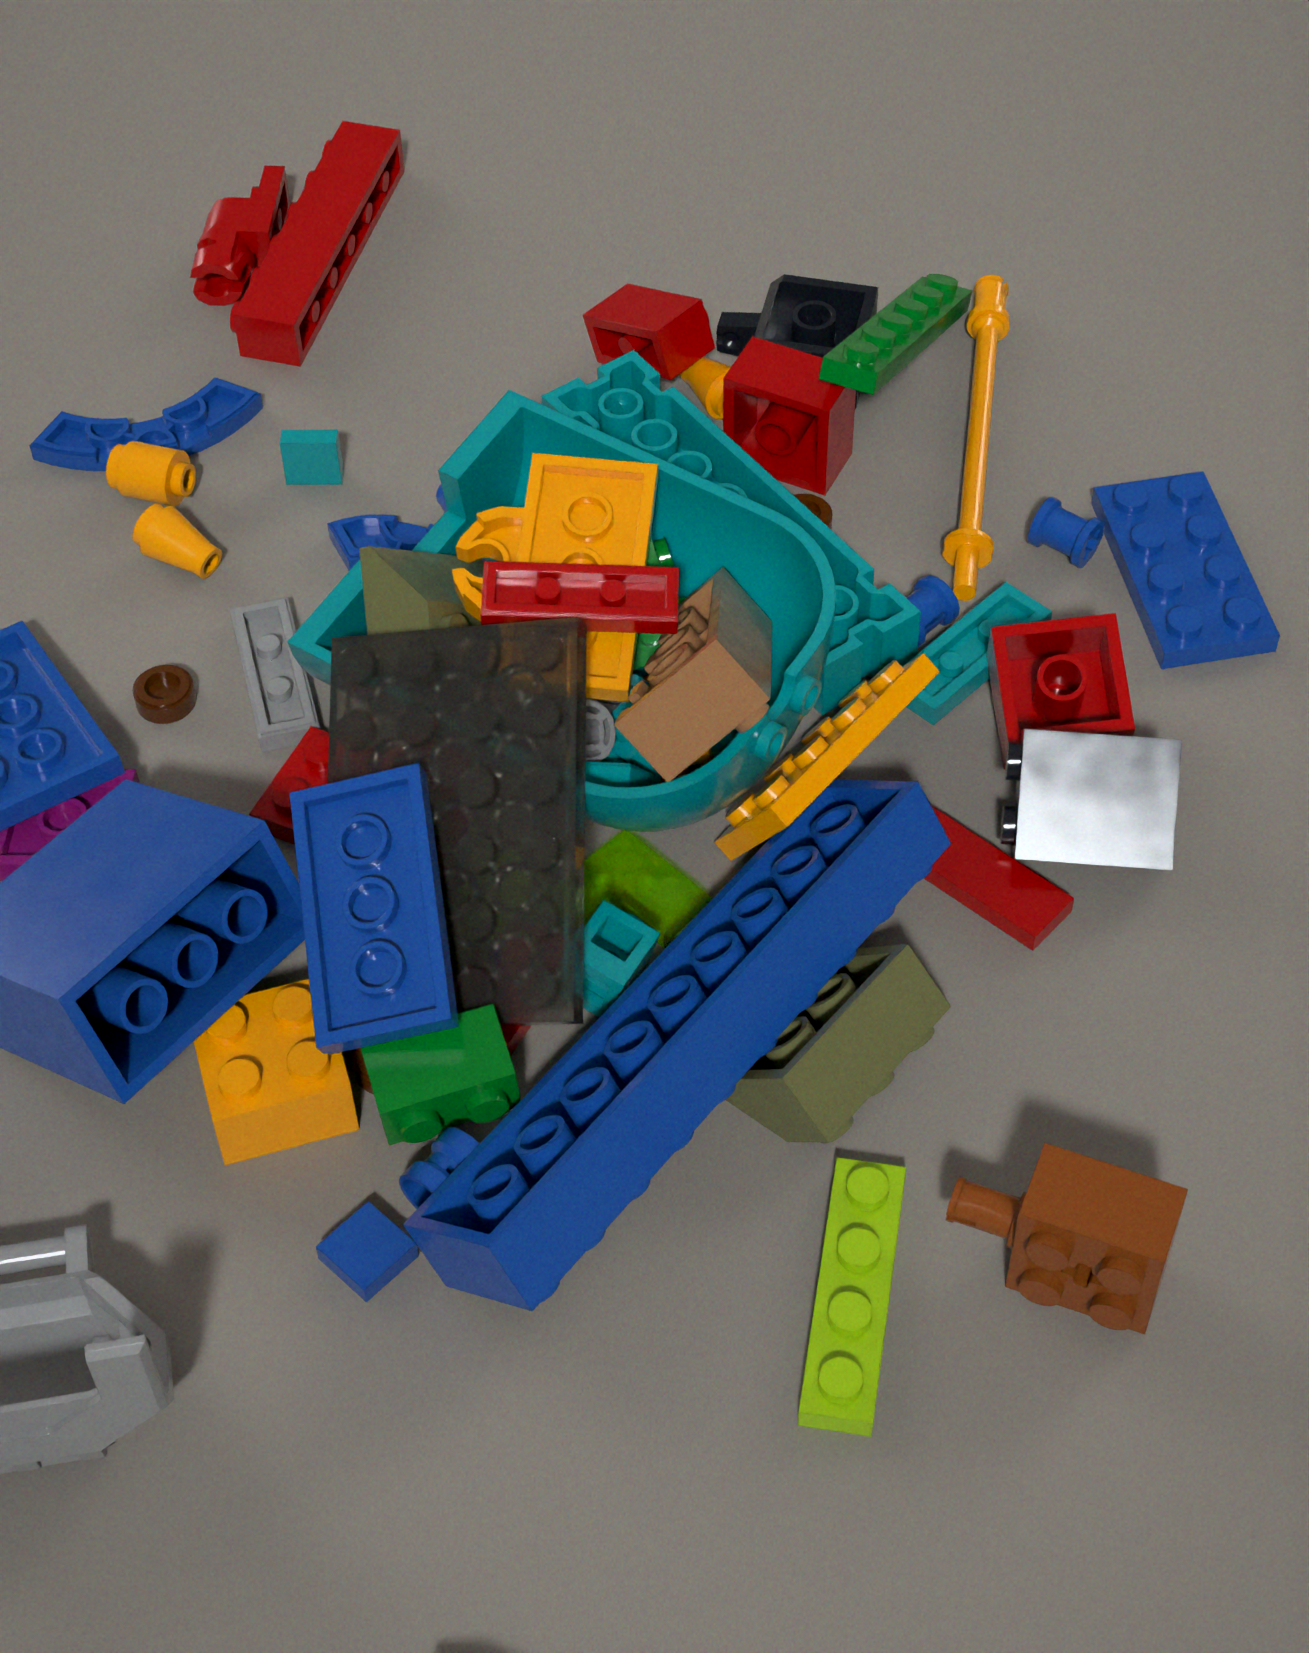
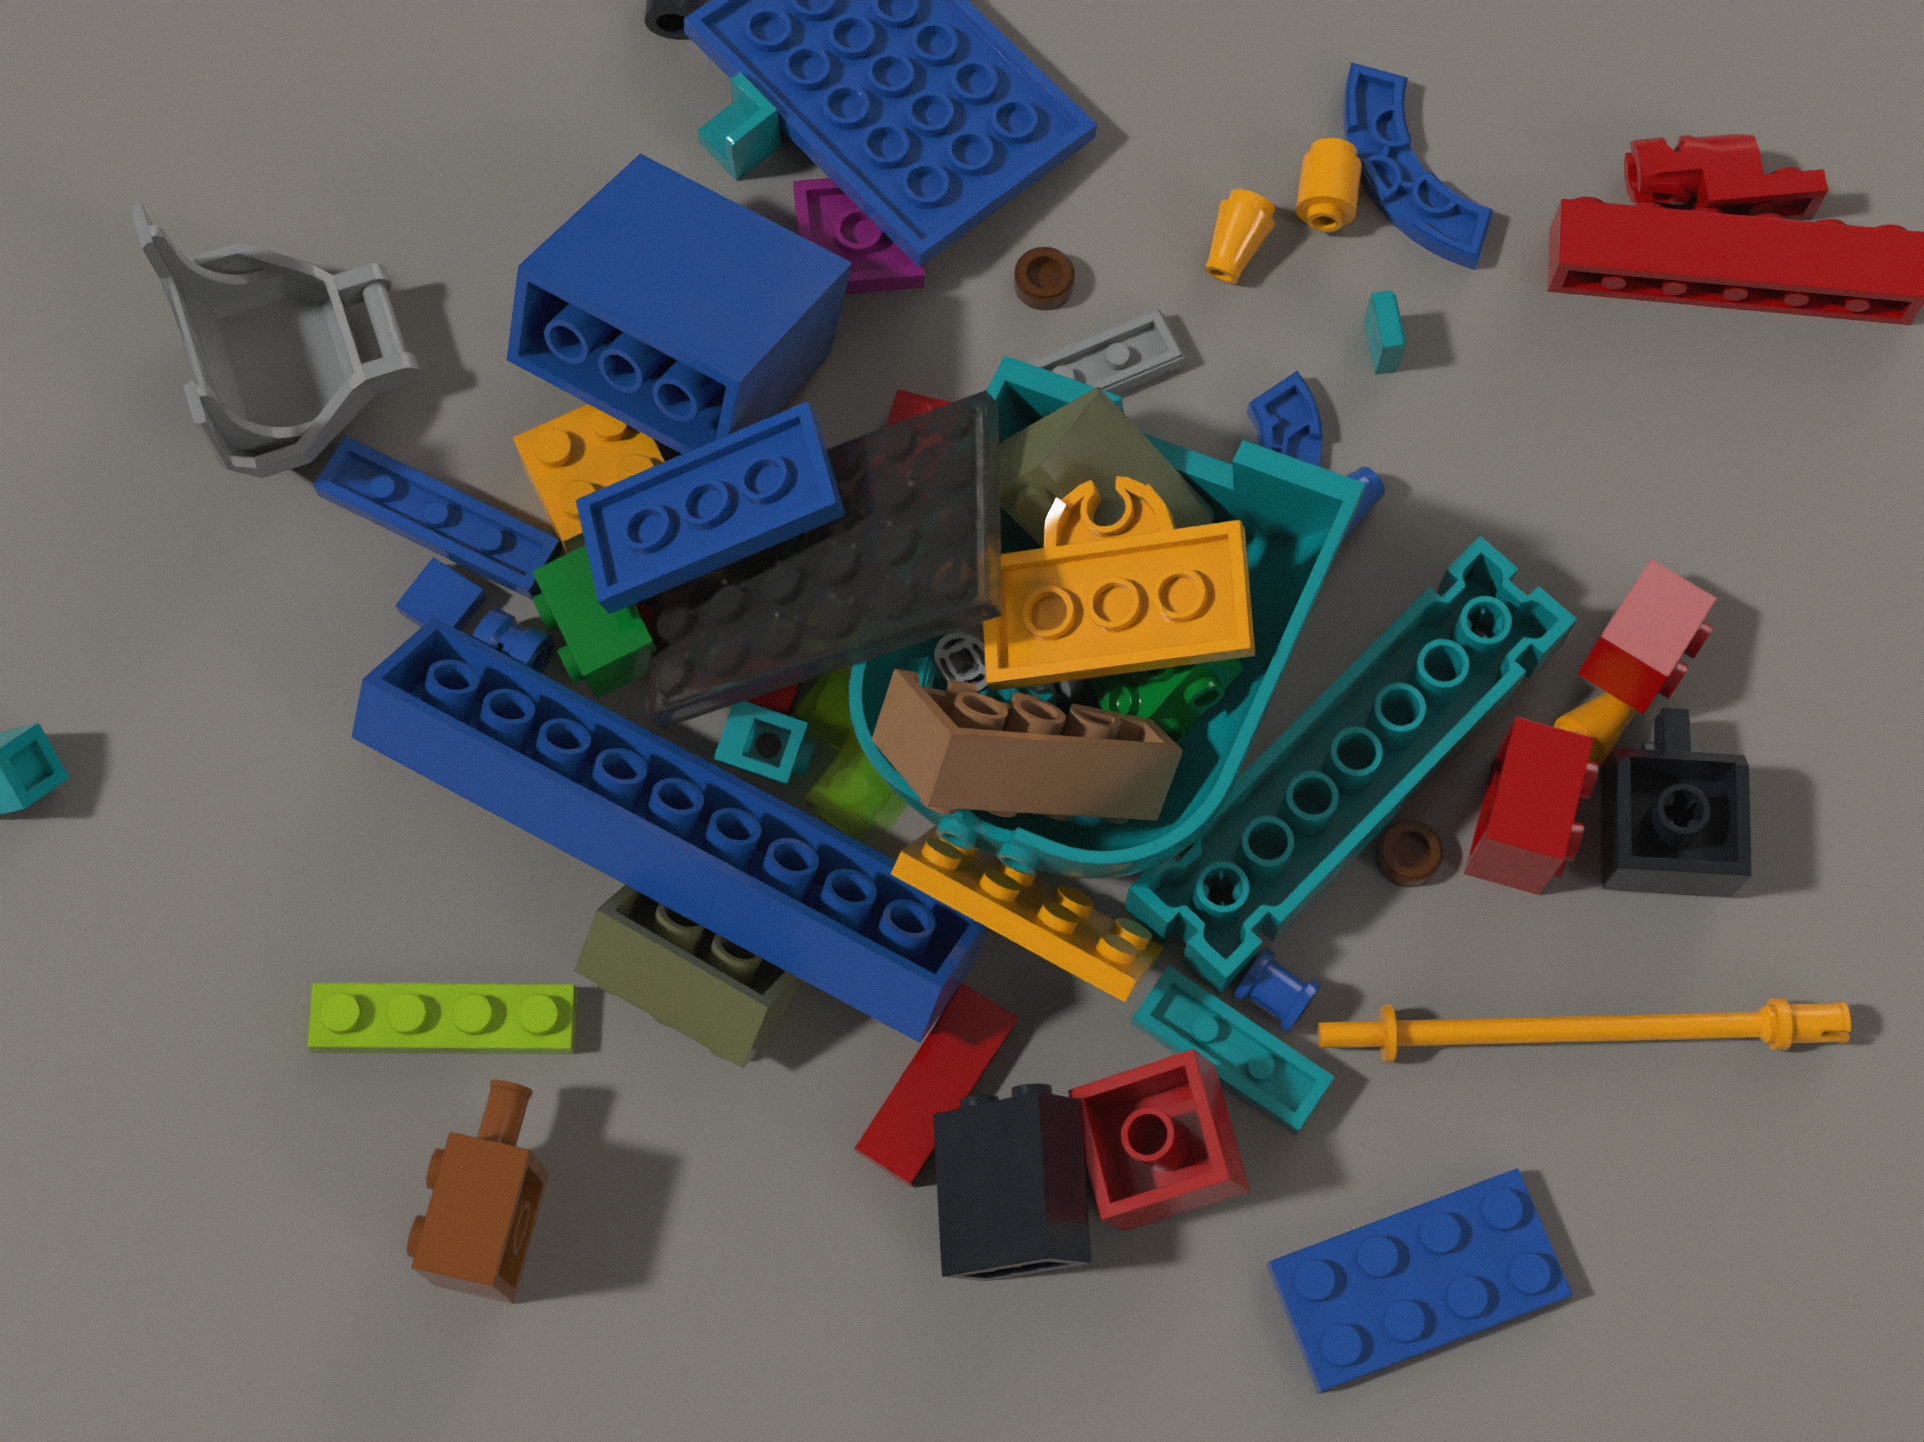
camera: 80 degrees right, 20 degrees up
(267, 1240) = (436, 516): none -> blue plate
(600, 595) = (1067, 609): red tile -> none
(896, 334) = (1670, 906): green plate -> none
(1066, 532) = (1435, 1139): blue bush -> none

